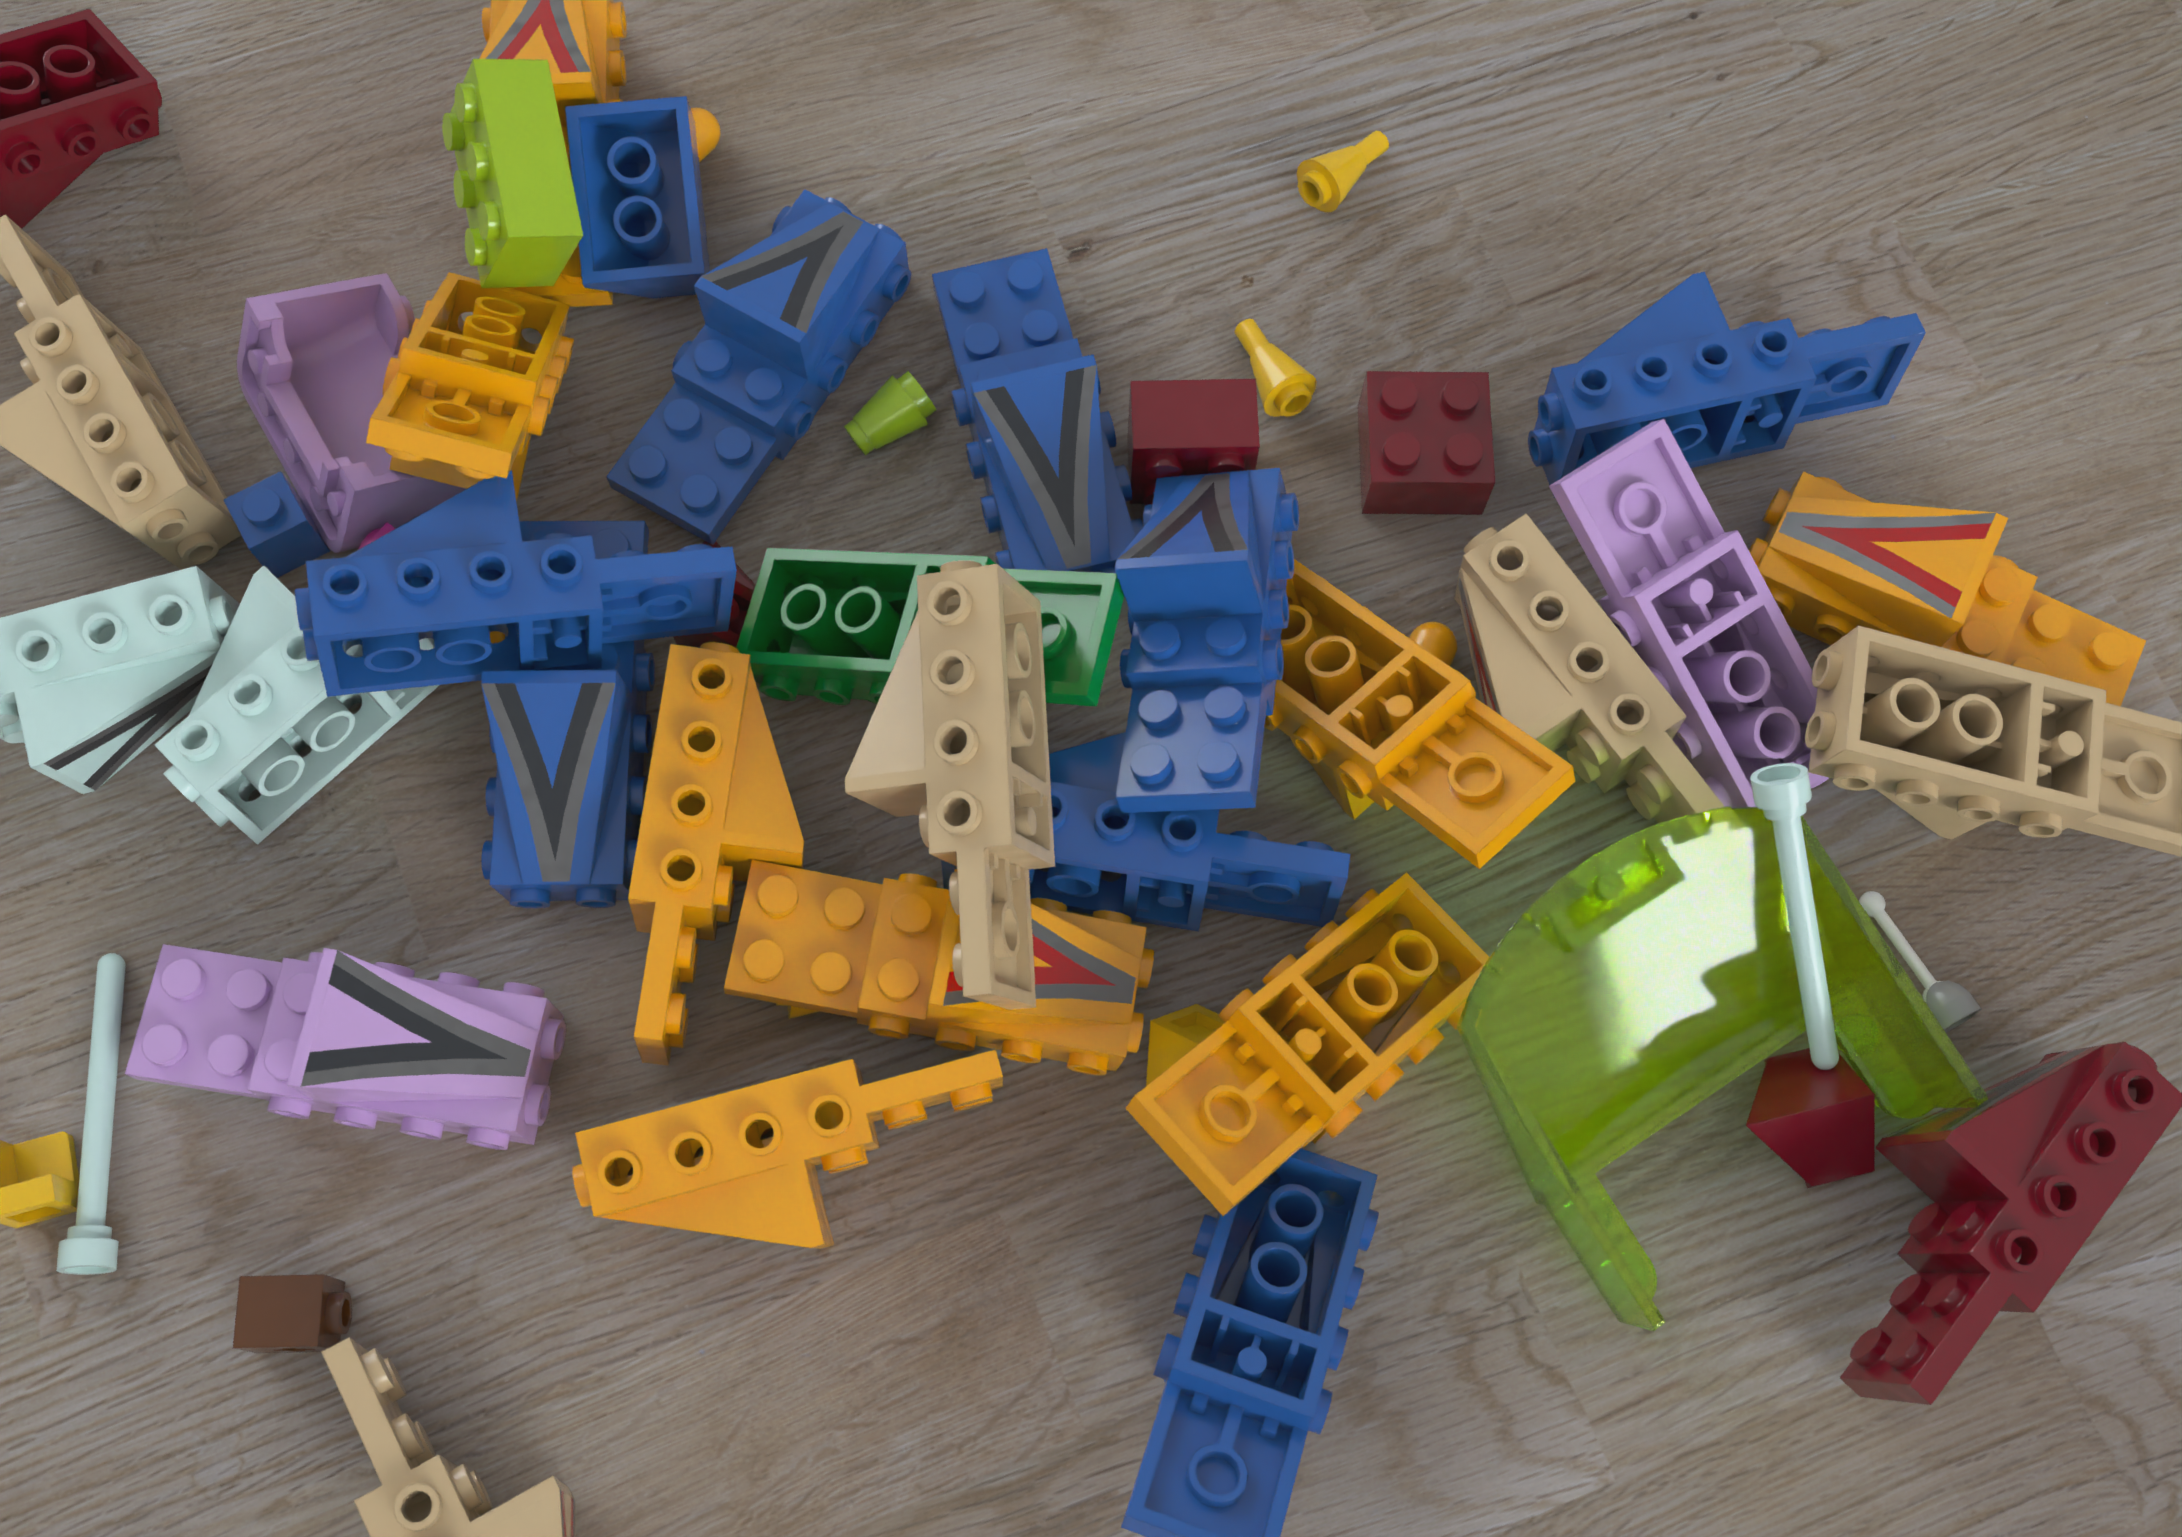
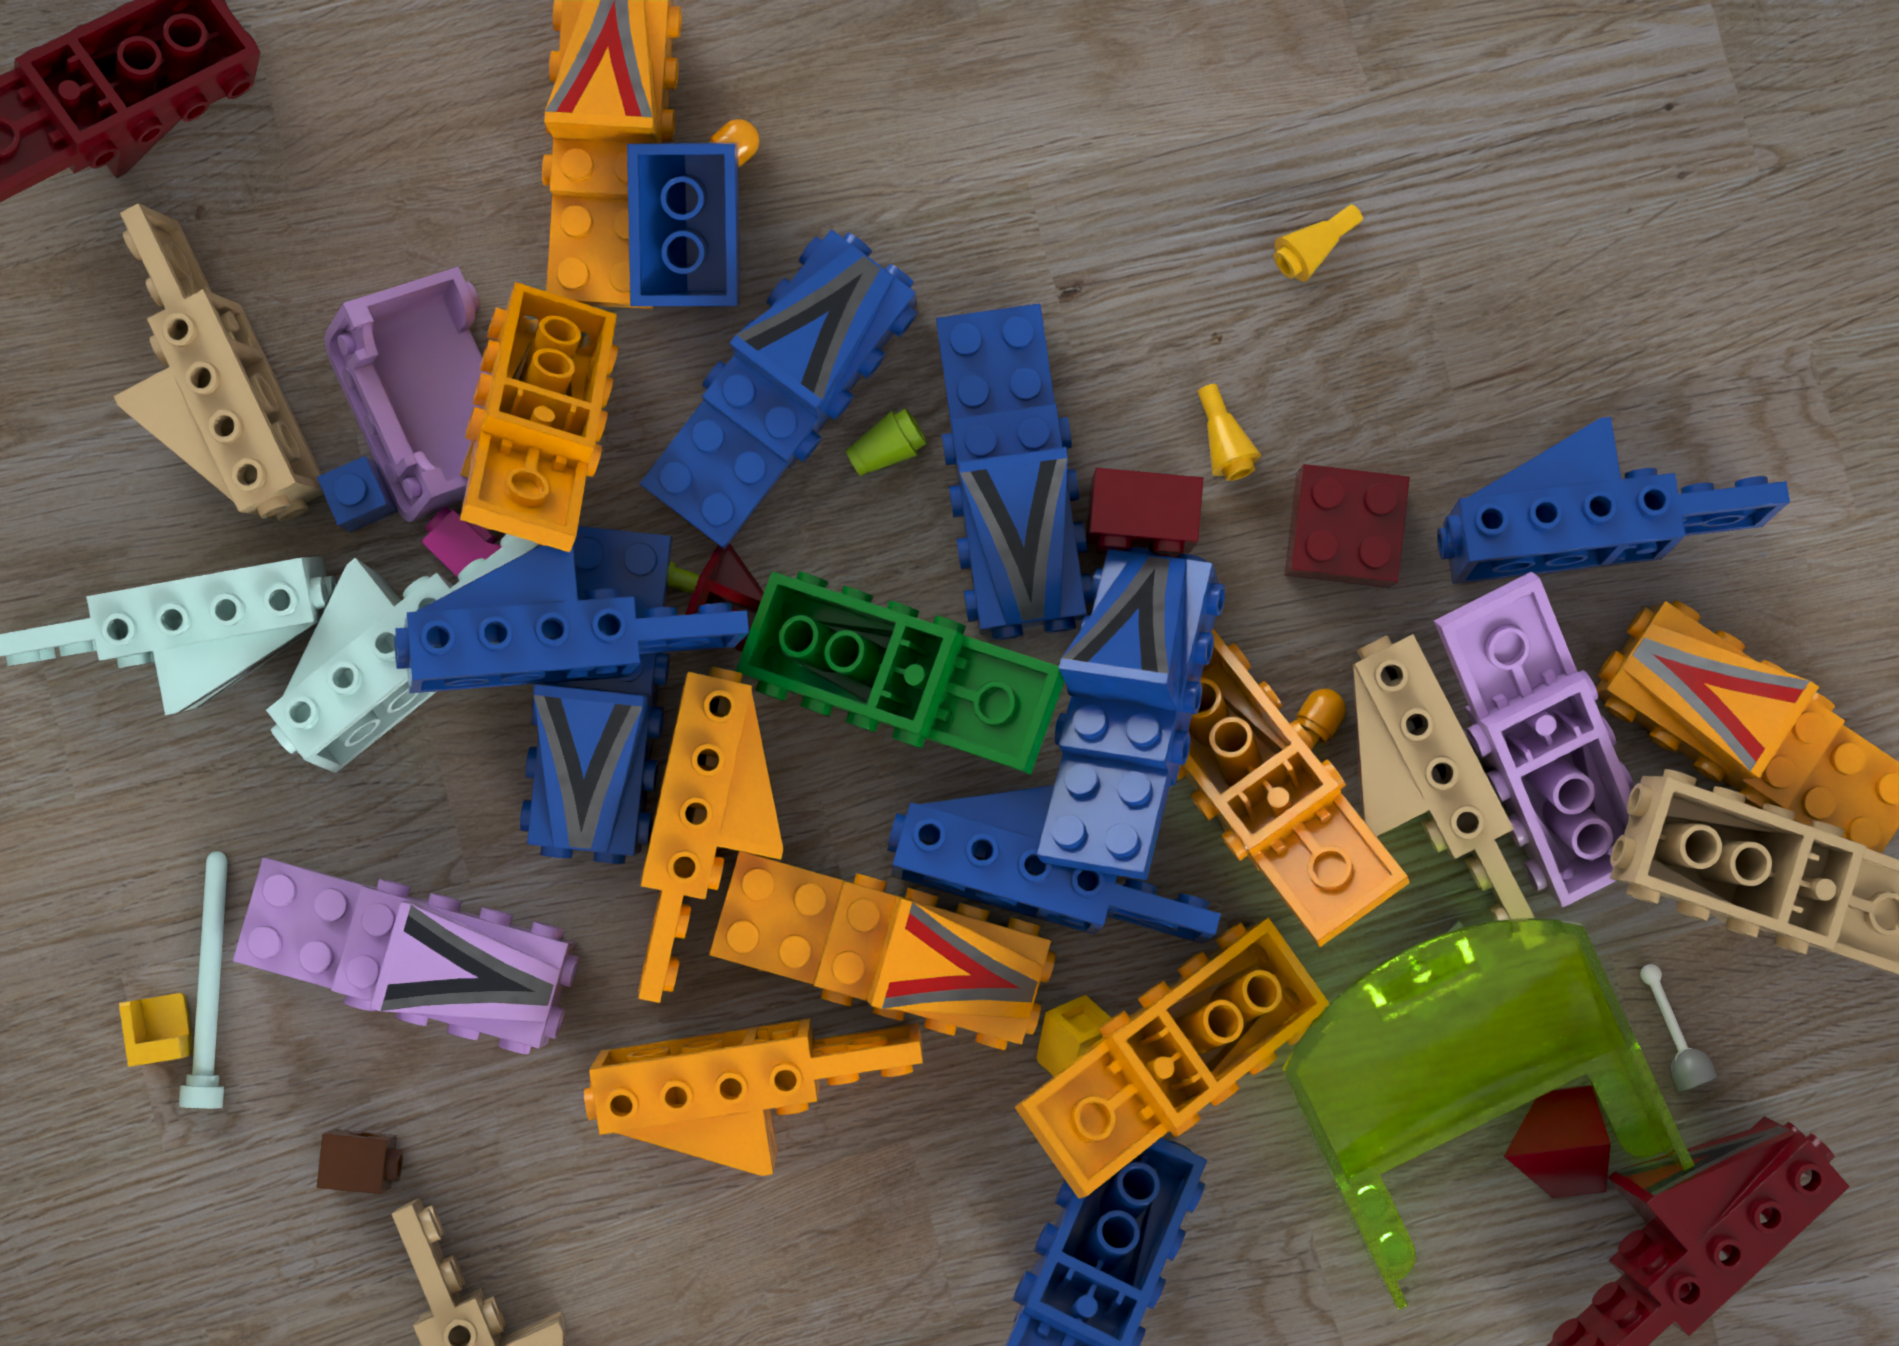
camera: 10 degrees right, 15 degrees up
(512, 173) = (578, 214): lime brick -> none
(969, 754) = (927, 810): tan wedge -> none
(1783, 796) = (1571, 922): light aqua piece -> none

